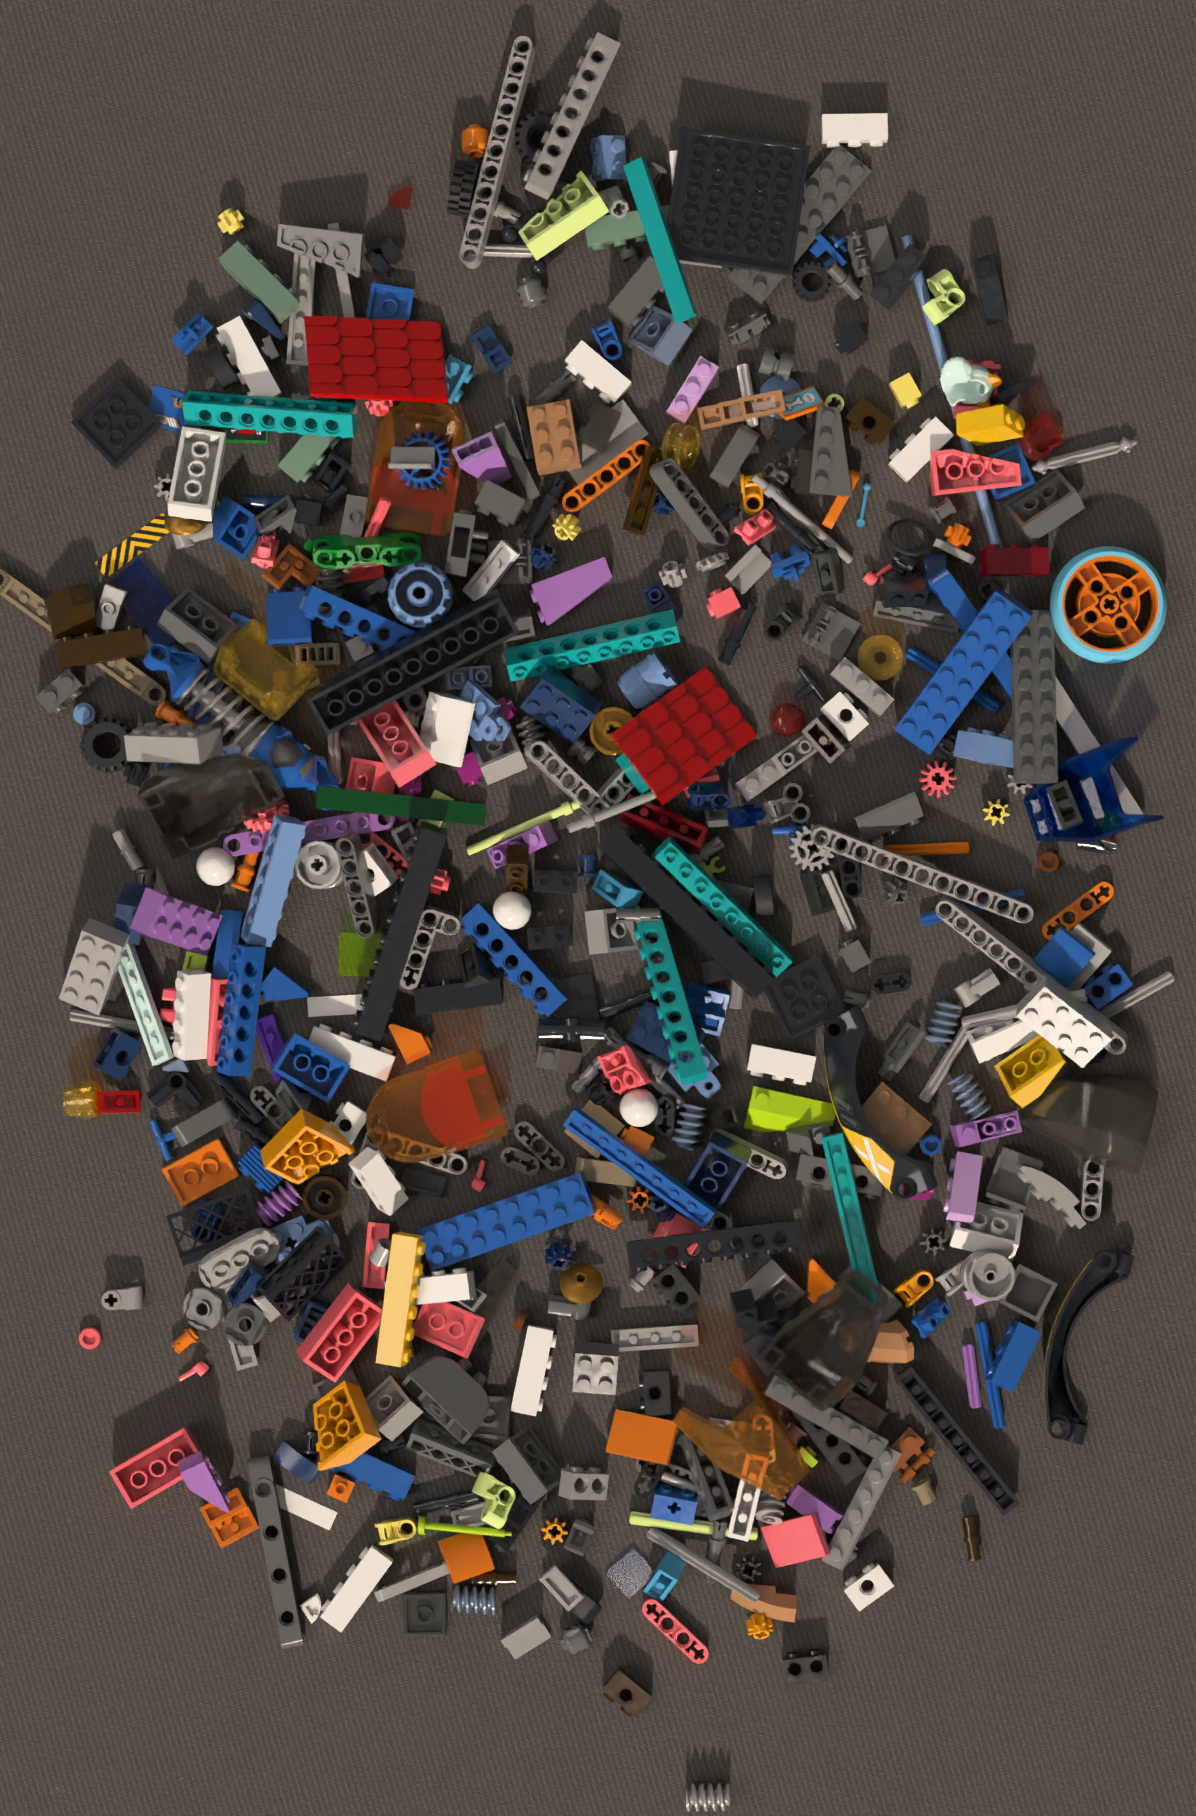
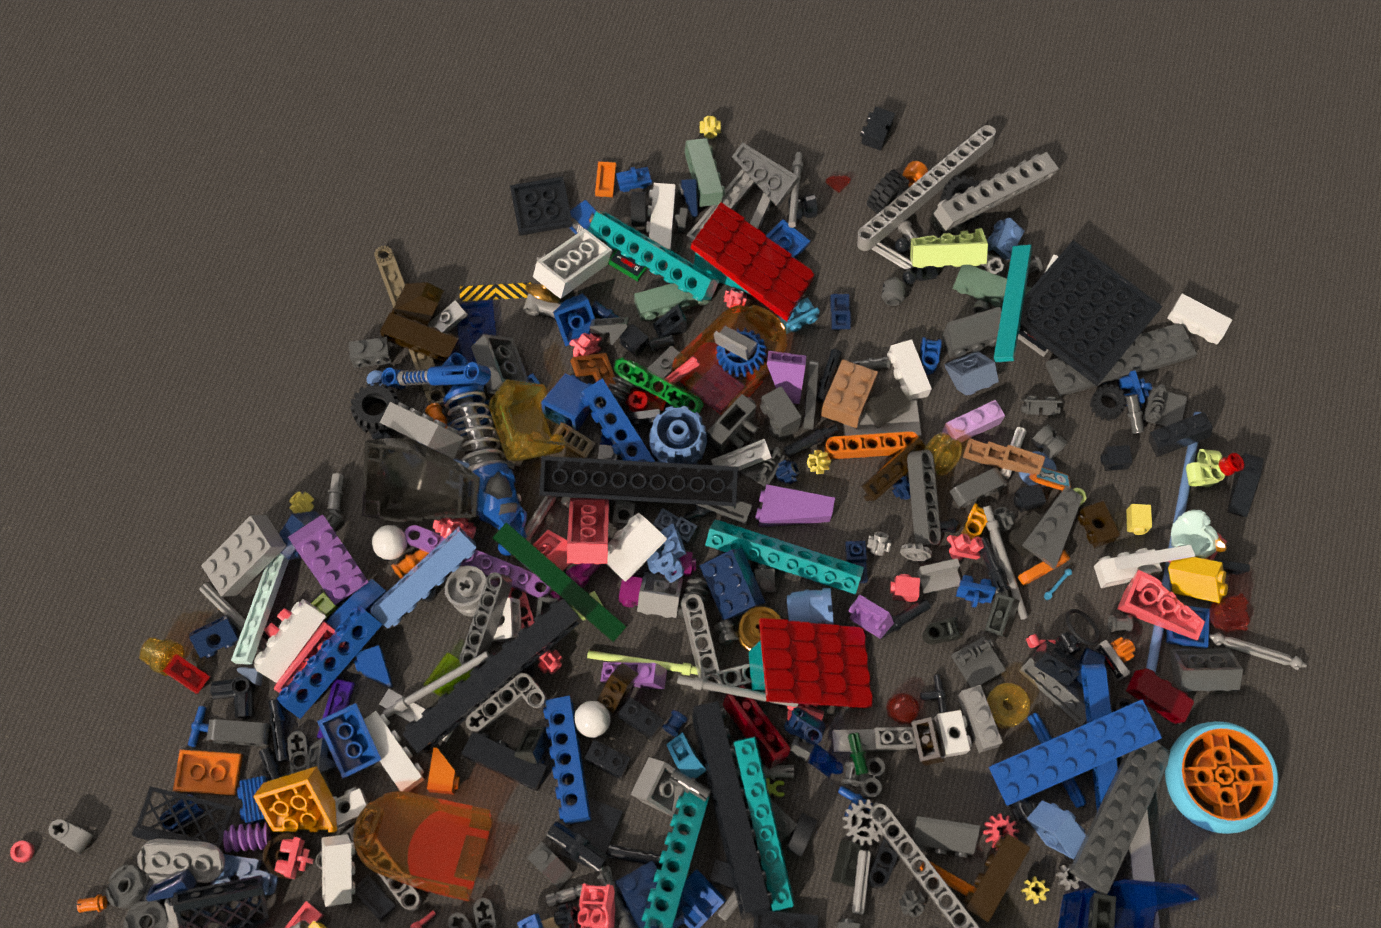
camera: 30 degrees right, 20 degrees down
(105, 881) = (301, 502): none -> light yellow gear
(150, 681) = (437, 375): none -> blue piece
(161, 349) = (605, 179): none -> orange tile
(331, 1186) = (290, 867): none -> coral hips
(332, 1002) = (403, 703): none -> light grey bar
(350, 211) = (797, 167): none -> light grey bar
(359, 580) = (638, 405): none -> red wheel
(402, 102) = (877, 128): none -> black brick
(422, 512) = (717, 388): none -> clear pink tile
(706, 653) = (870, 617): none -> medium lavender hinge
(770, 792) = (858, 753): none -> dark green axle
(939, 430) = (1154, 557): none -> white sticker
(954, 825) = (996, 877): none -> dark brown brick
(964, 275) = (1231, 464): none -> red wheel

